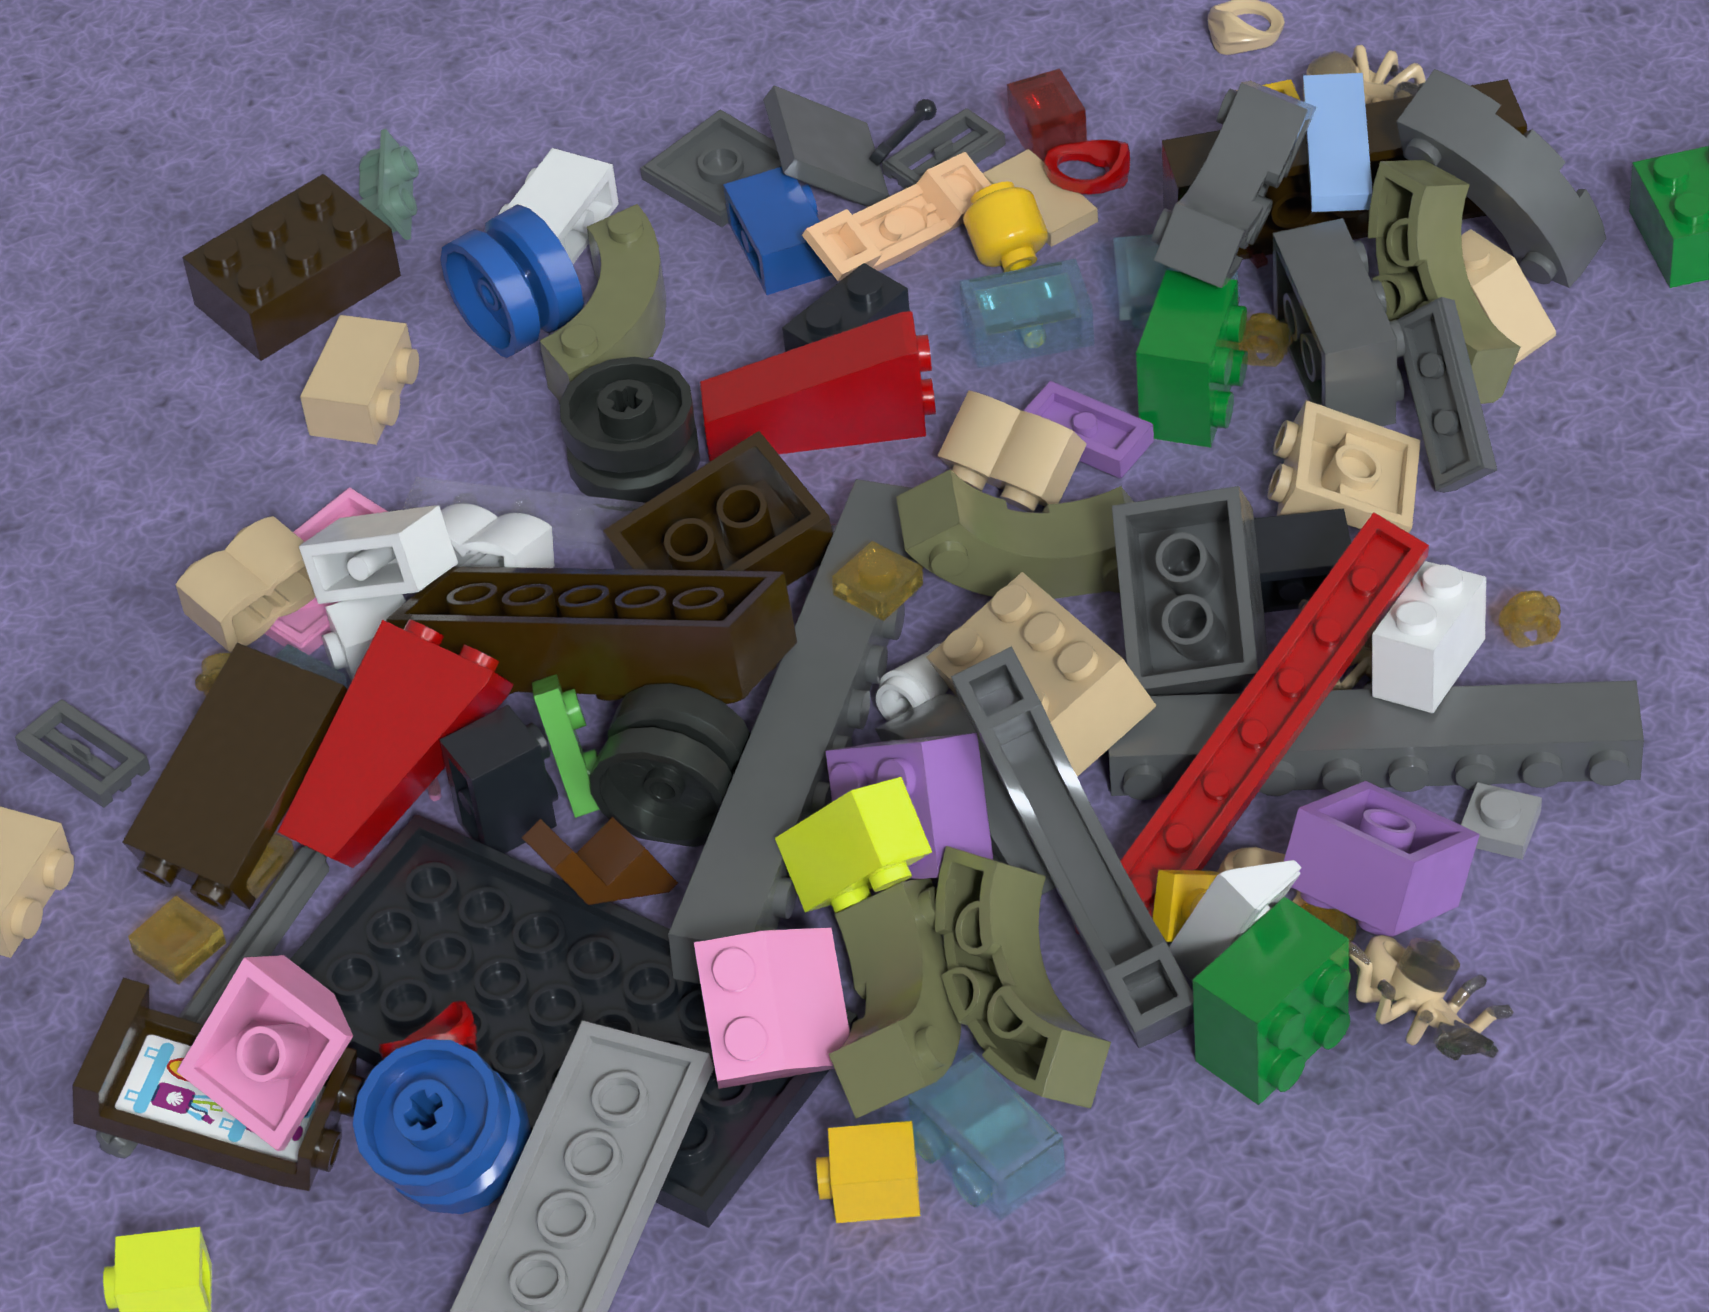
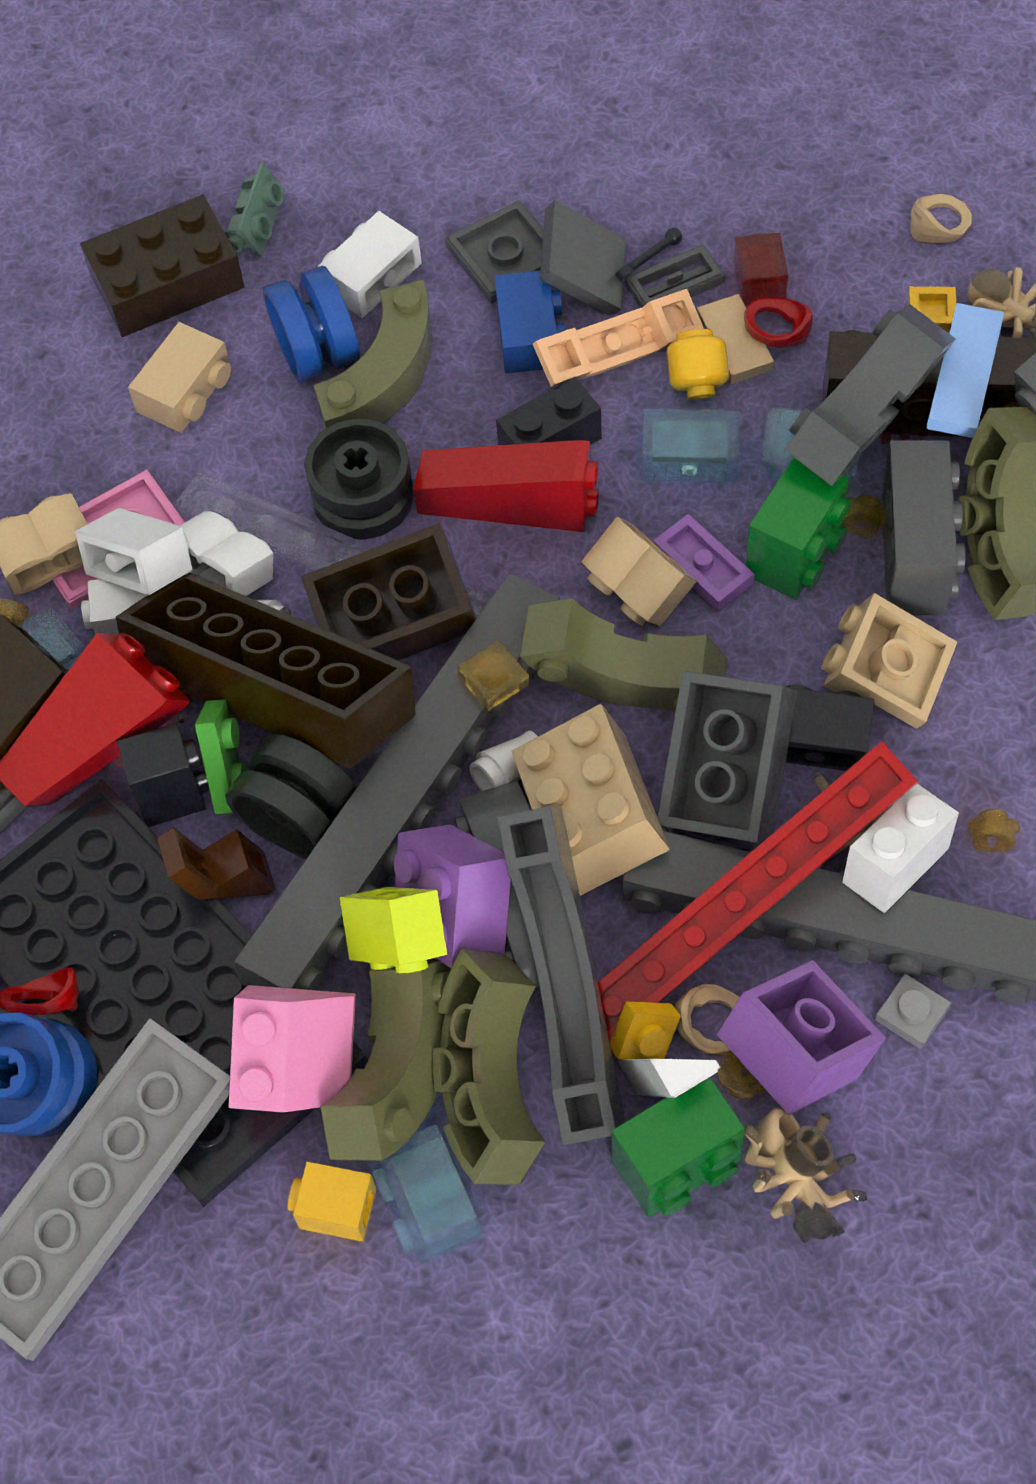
camera: 15 degrees right, 15 degrees up
(1446, 396) = (986, 614): dark grey tile -> none

